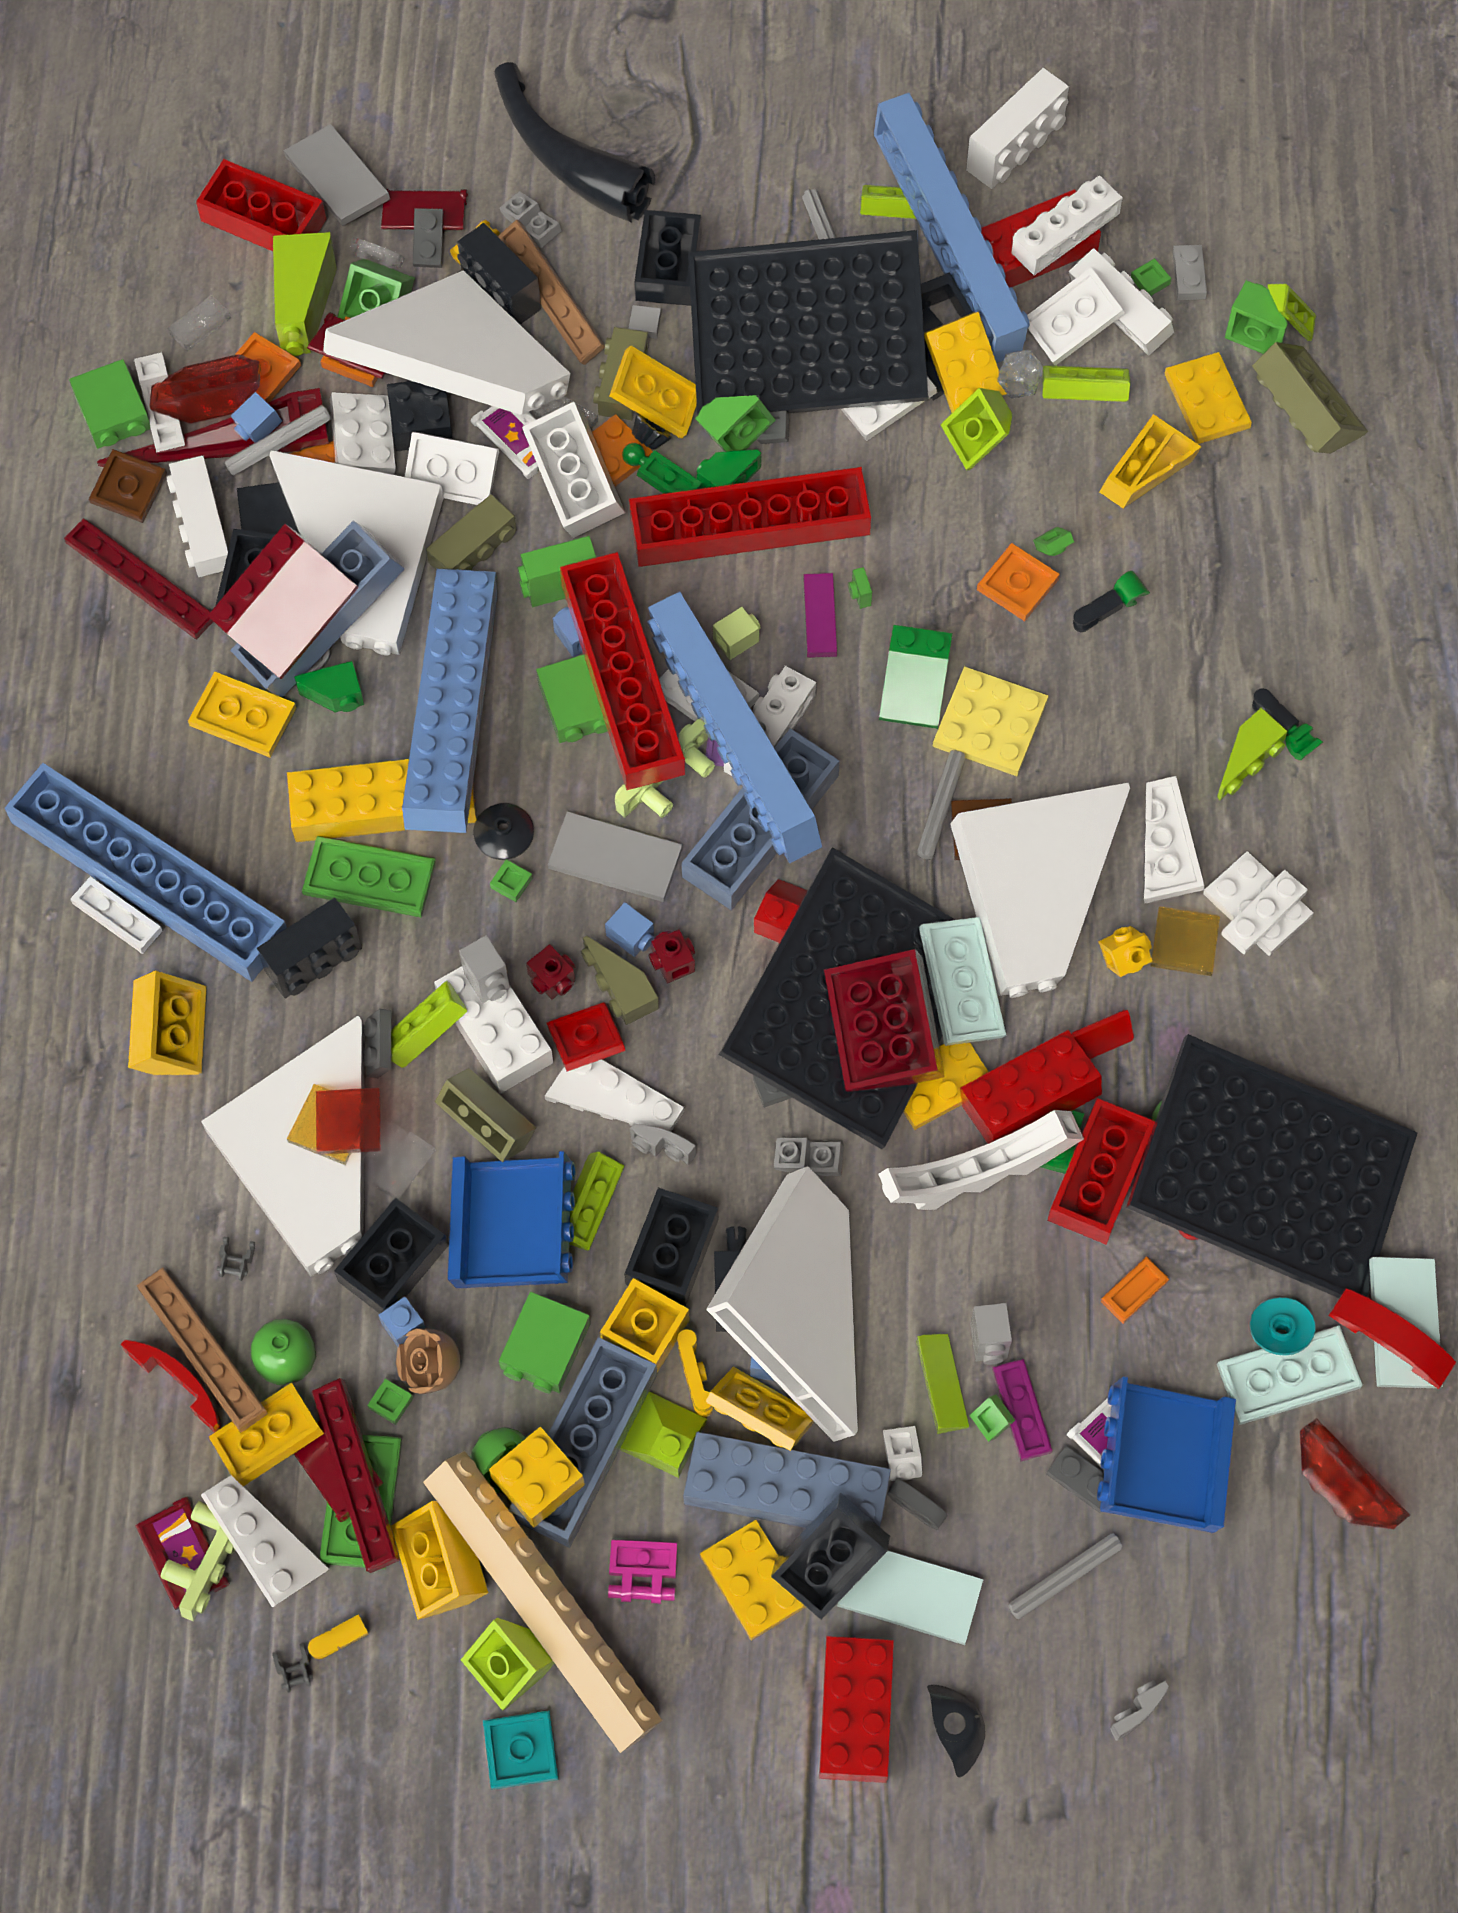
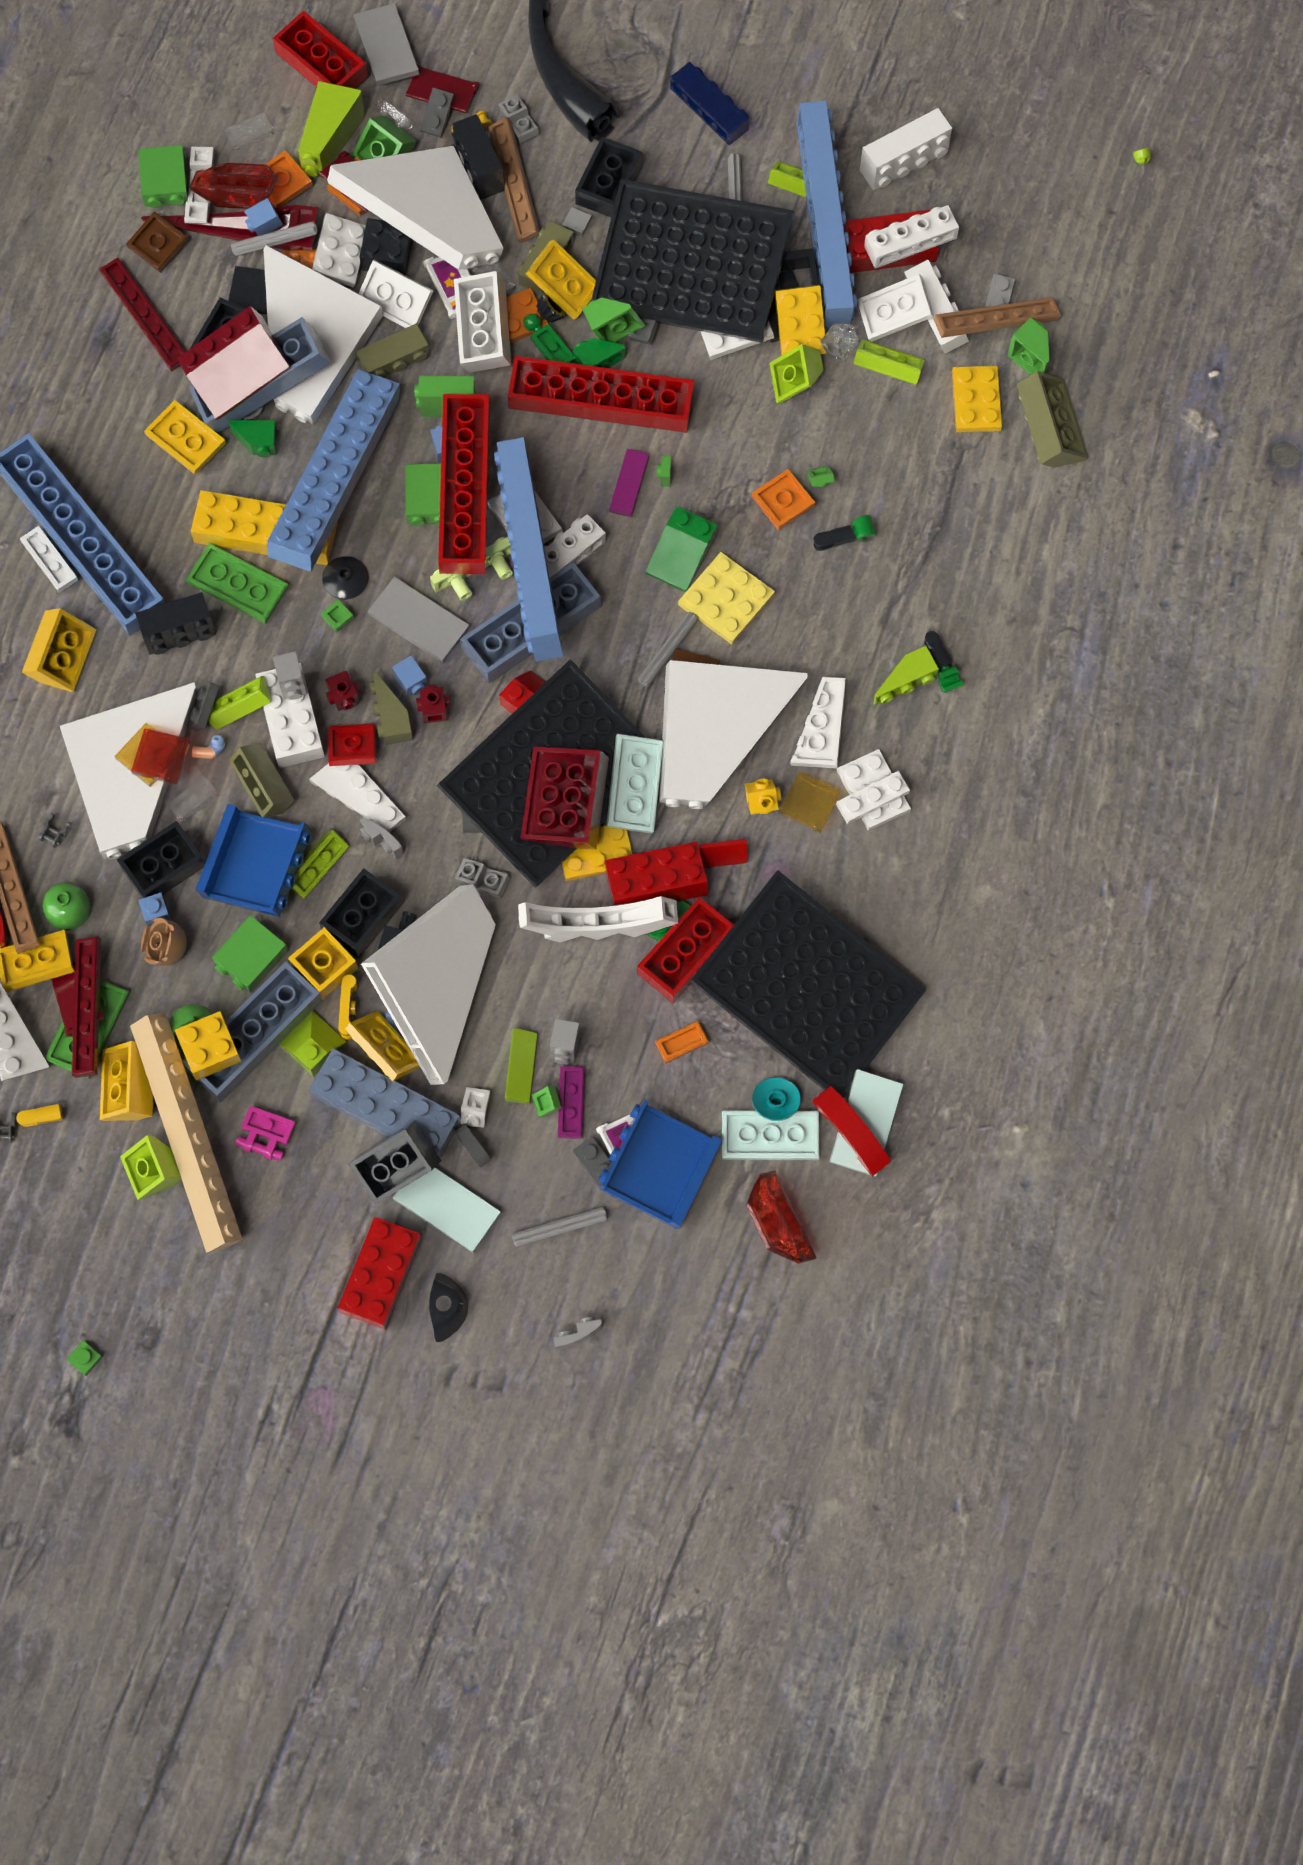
camera: 15 degrees right, 5 degrees up
(200, 515) = (200, 278): white brick -> none
(390, 1401) = (129, 963): bright green plate -> none
(406, 1096) = (211, 751): none -> arm
(520, 1750) = (140, 1230): teal tile -> none
(736, 632) = (562, 478): yellowish green brick -> none
(743, 1573) = (332, 1153): yellow plate -> none
(758, 139) = (709, 103): none -> clear blue brick
(1149, 461) = (911, 435): yellow wedge -> none
(1151, 277) = (966, 294): bright green plate -> none
(1199, 294) = (996, 317): none -> medium nougat tile
(1293, 309) = (1060, 350): lime slope -> none
(1298, 63) = (1142, 156): none -> lime hinge

